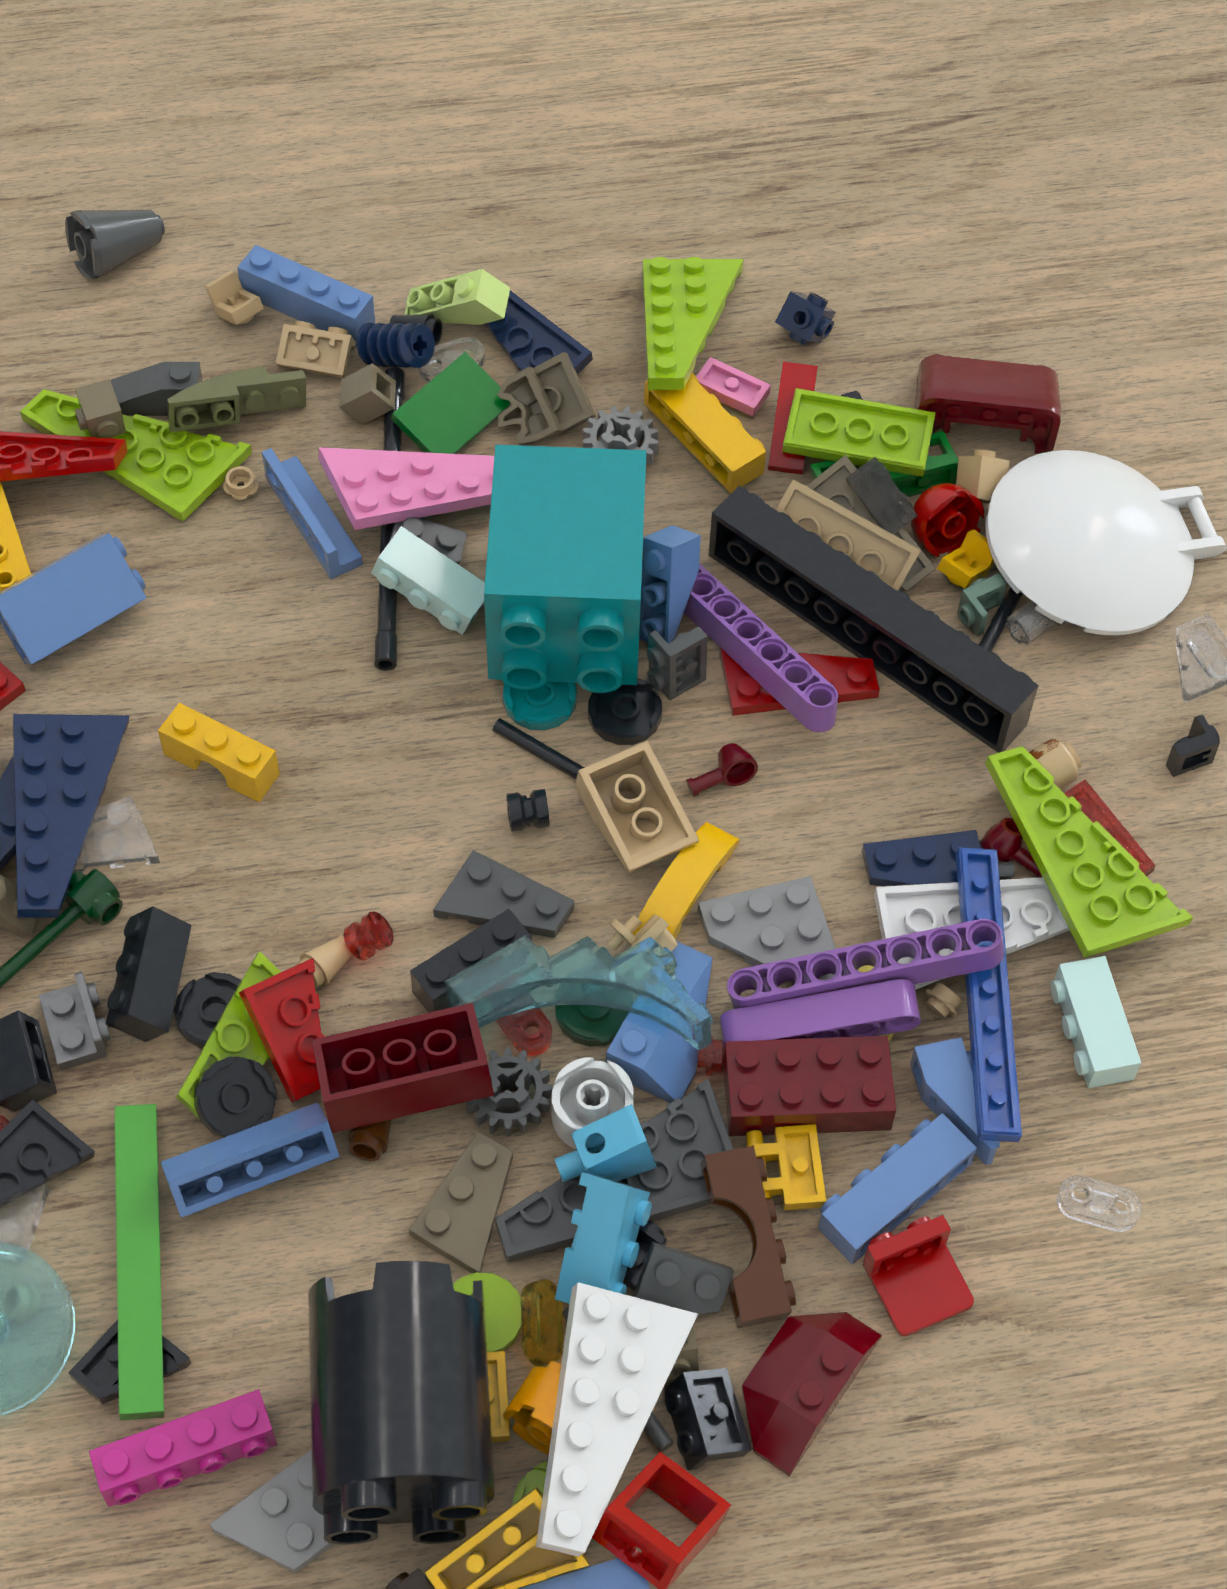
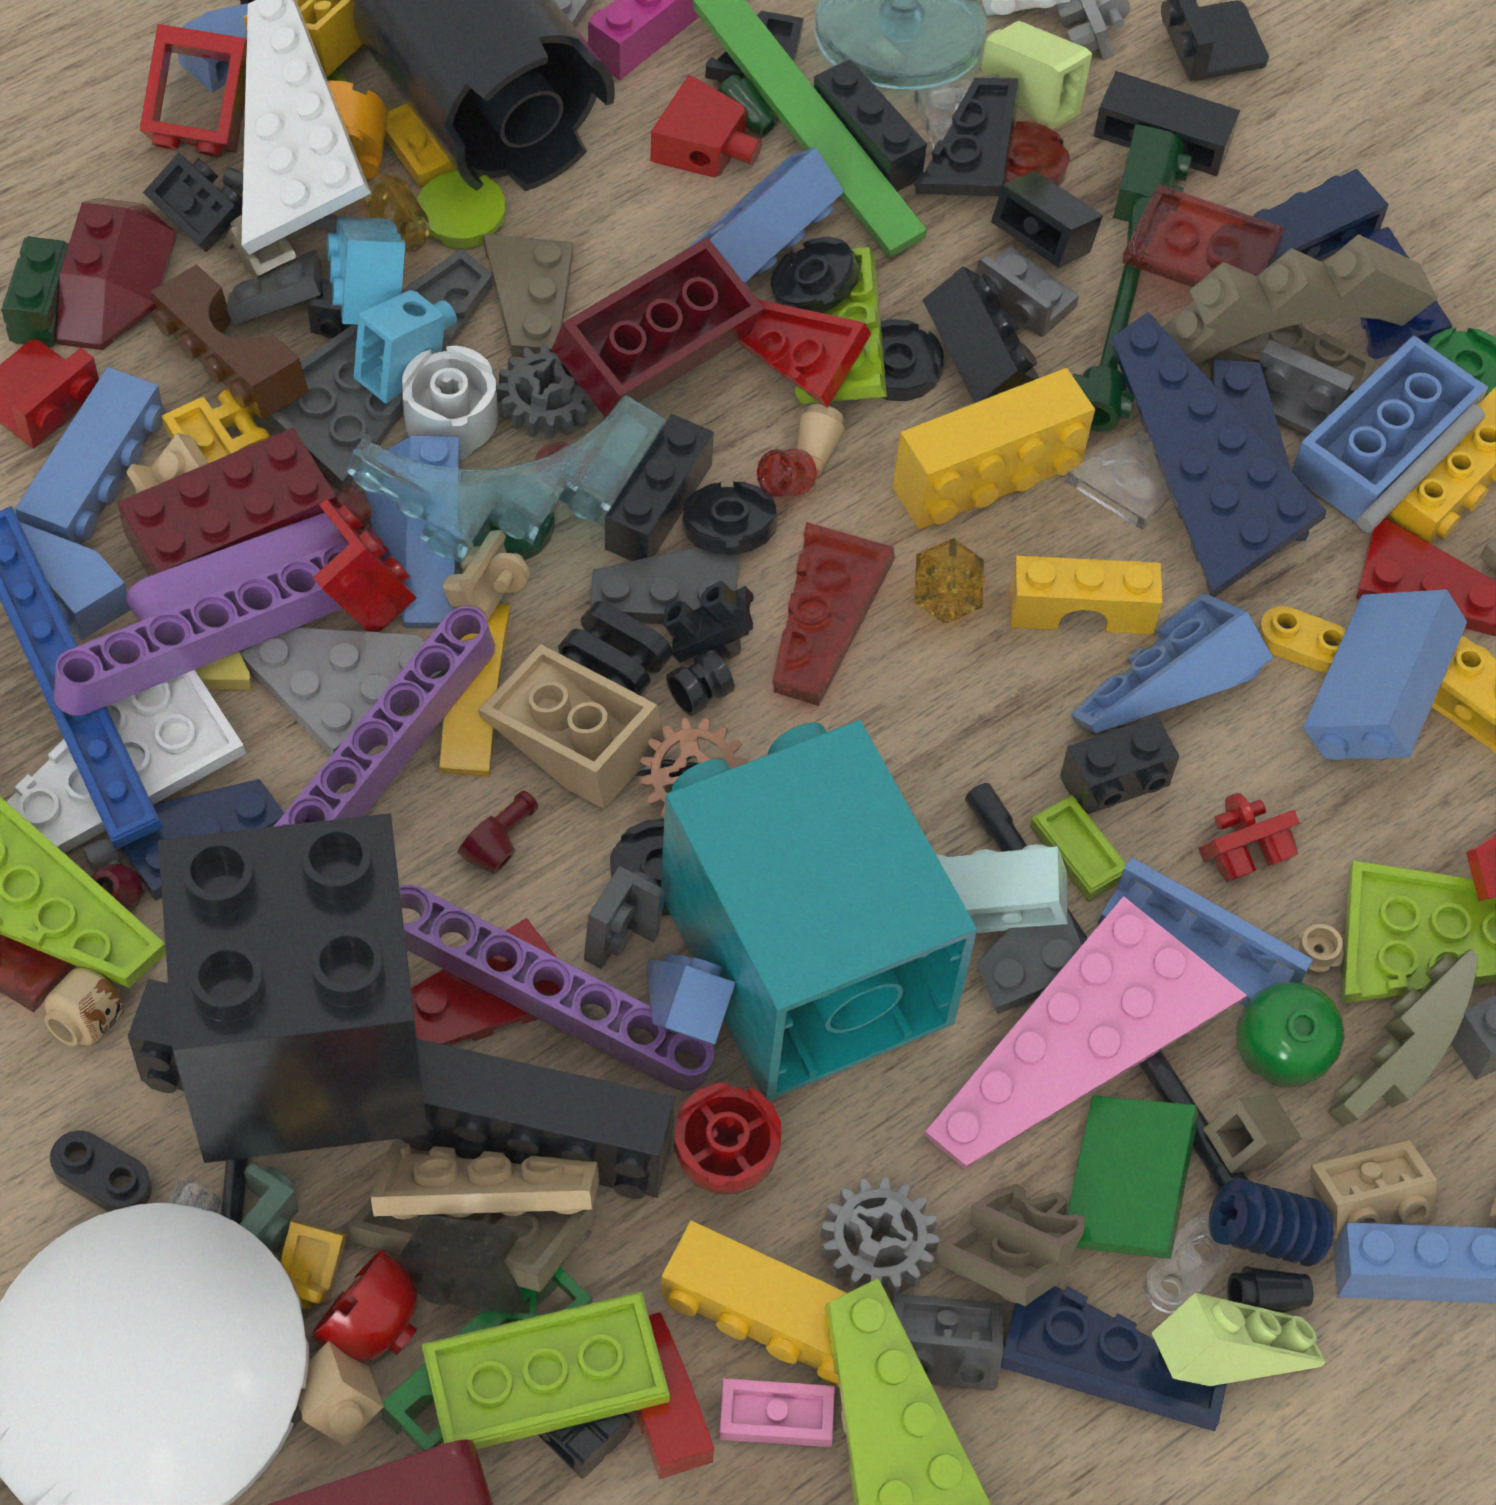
camera: 150 degrees right, 0 degrees up
(84, 668) = (1305, 639): none -> yellow plate
(92, 1224) = (873, 123): none -> black brick
(180, 1308) = (758, 116): none -> dark green cone
(198, 679) = (1198, 654): none -> medium blue wedge
(208, 872) = (992, 448): none -> yellow brick
(233, 556) = (1231, 850): none -> red hips
(234, 1290) = (702, 131): none -> red torso
(284, 630) = (1119, 765): none -> black brick
(297, 434) = (1290, 1034): none -> green cylinder
(308, 798) = (949, 581): none -> clear yellow brick
(342, 607) = (1085, 851): none -> lime tile
(397, 834) = (829, 602): none -> clear red wing
(428, 923) = (729, 518): none -> black tile
(497, 838) = (713, 626): none -> black hips
(569, 741) = (690, 749): none -> nougat gear
(582, 840) = (617, 647): none -> black brick
(612, 380) = (954, 1338): none -> flat silver bracket
(683, 502) = (727, 1138): none -> red cylinder
(723, 979) = (361, 577): none -> red bracket
(772, 852) = (398, 733): none -> medium lavender beam
(841, 1145) = (176, 459): none -> tan bracket
(882, 1371) = (33, 292): none -> dark green brick
(936, 576) = (291, 987): none -> black brick
(1071, 673) = (99, 1168): none -> black plate

